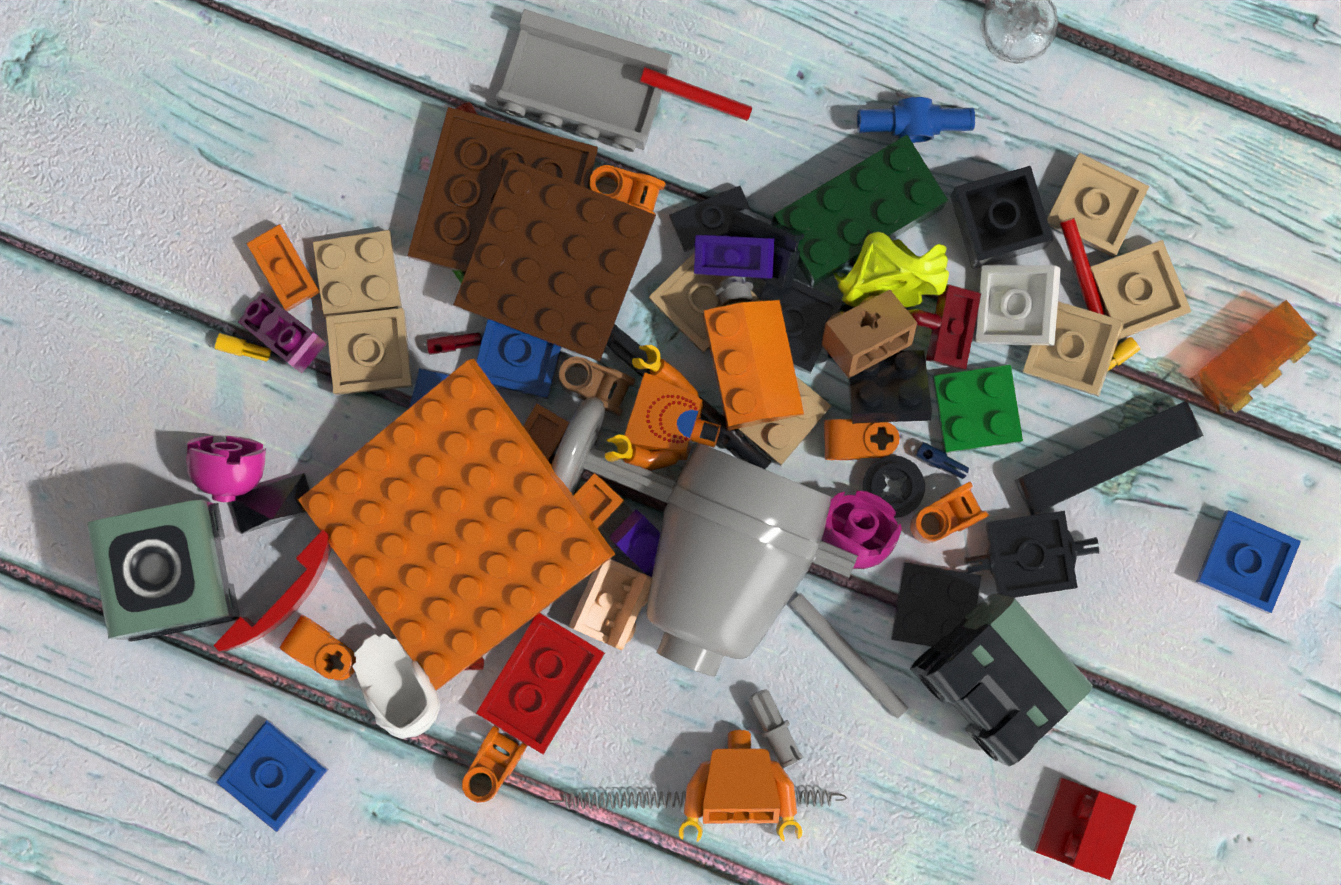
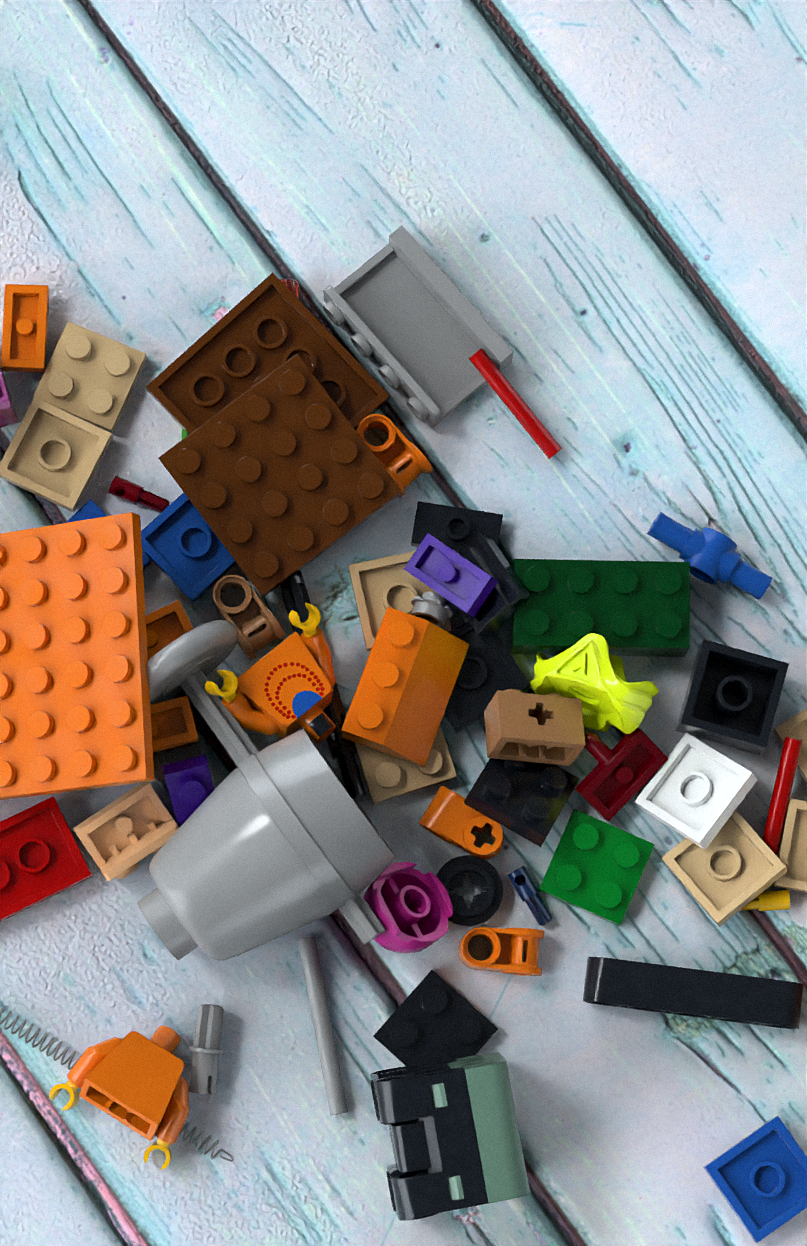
camera: 30 degrees right, 5 degrees down
(1031, 555) = (559, 1039): black plate -> none

